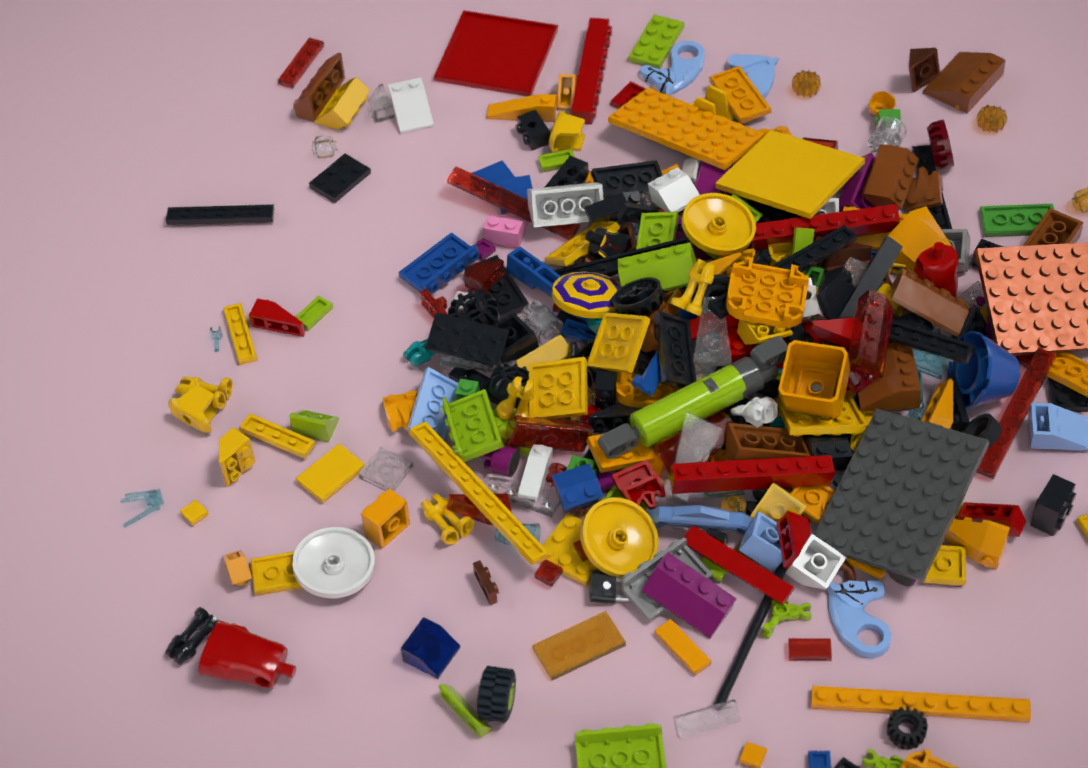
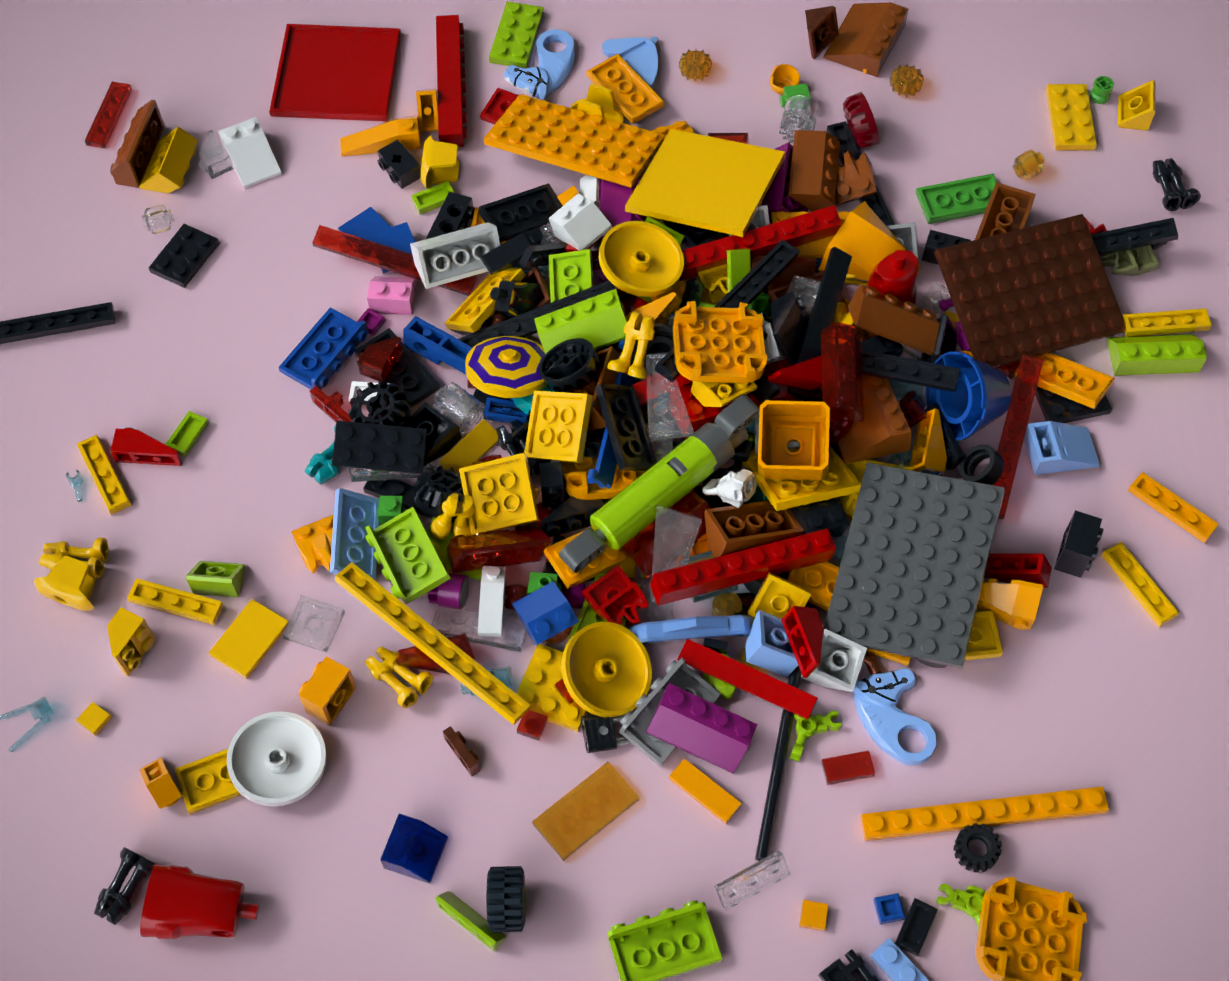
camera: 15 degrees left, 10 degrees up
(932, 378) = (912, 408): none -> clear red leg

